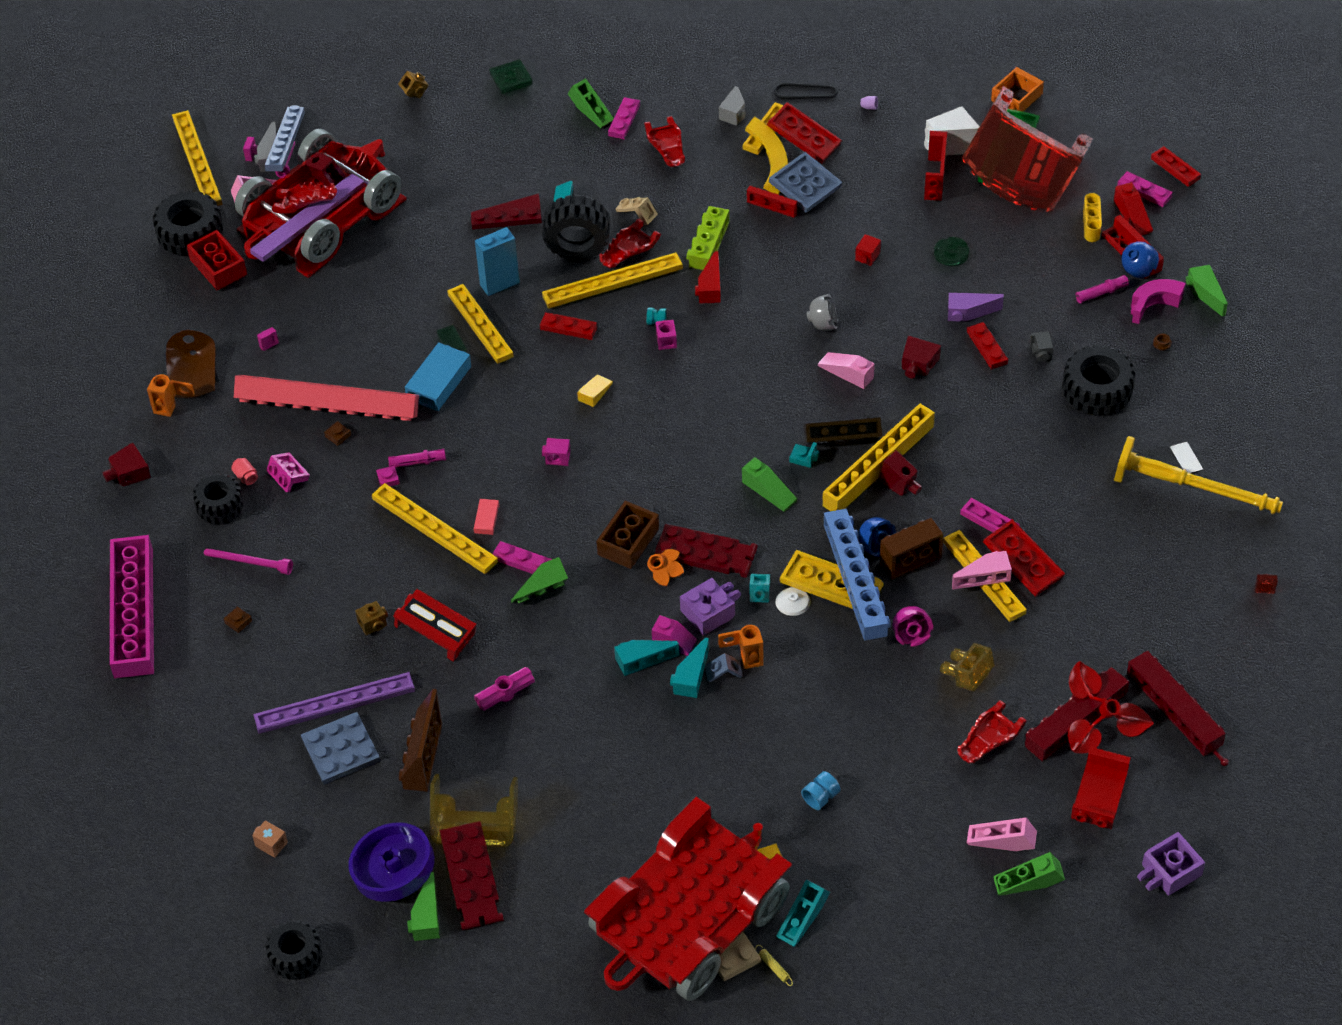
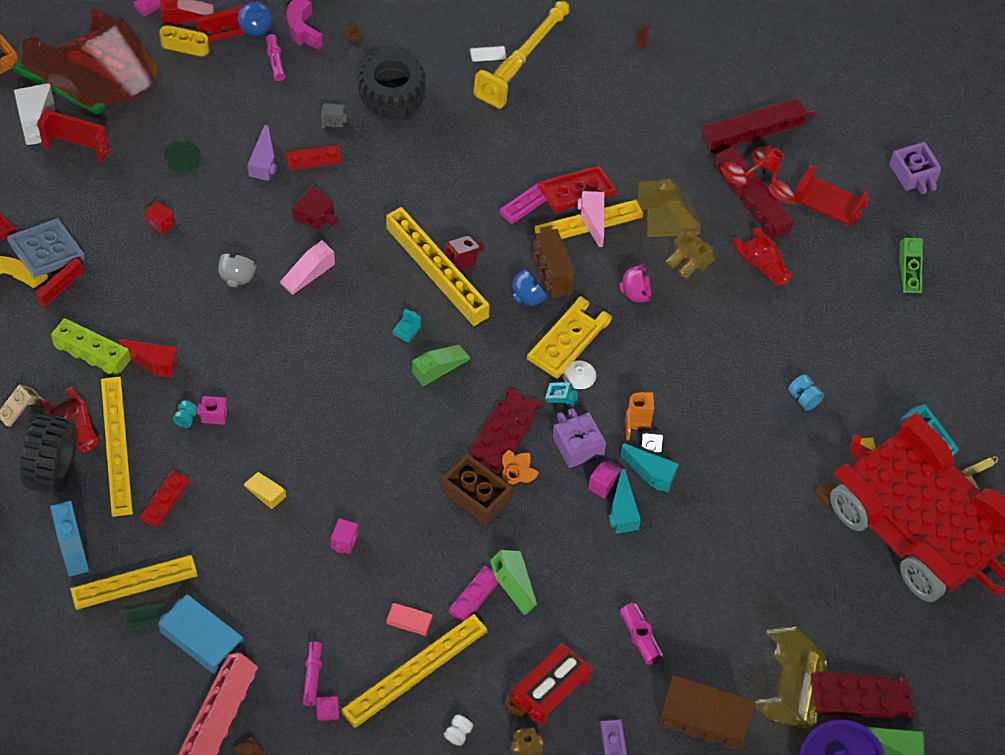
camera: 85 degrees left, 5 degrees up
(380, 568) = (458, 730): none -> white wheel
(842, 430) = (393, 286): dark brown brick -> none
(856, 574) = (576, 310): medium blue brick -> none
(1003, 835) = (869, 273): bright pink slope -> none
(1005, 639) = (668, 209): none -> clear yellow windscreen

